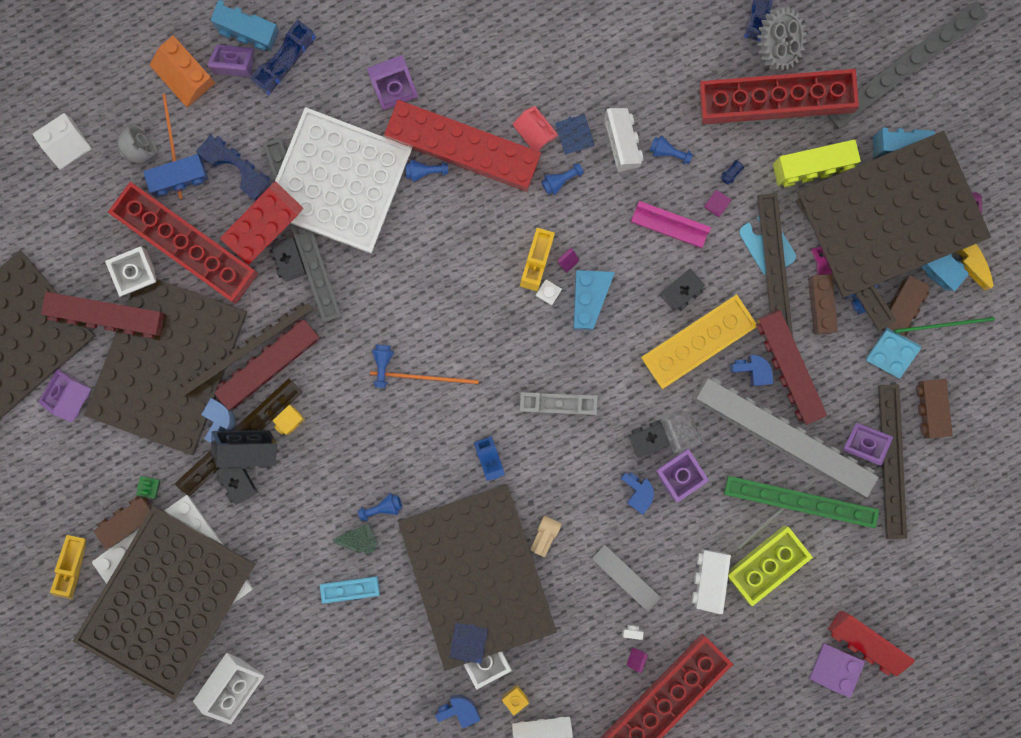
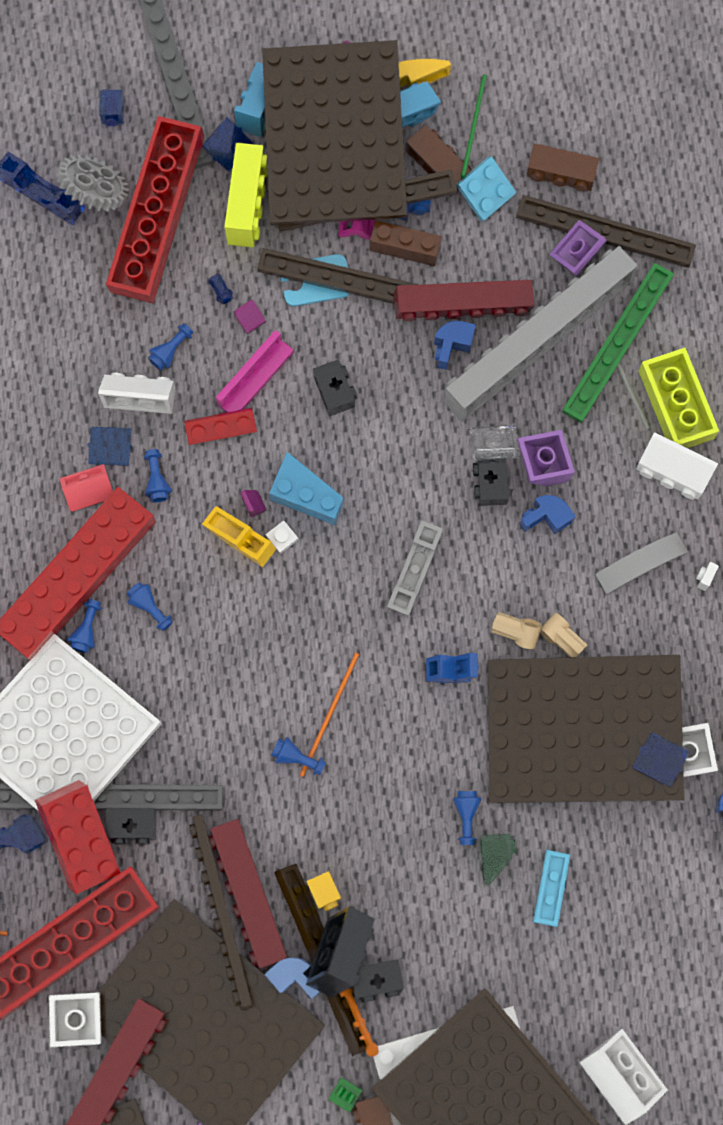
camera: 70 degrees left, 10 degrees down
(185, 495) = (371, 1048): none -> orange piece
(462, 204) = (142, 598): none -> blue piece
(537, 504) = (523, 631): none -> tan piece
(619, 213) = (220, 426): none -> red plate
(699, 341) = (399, 390): yellow plate -> none
(853, 30) = (111, 107): none -> clear blue brick
(856, 129) = (223, 142): none -> clear blue piece

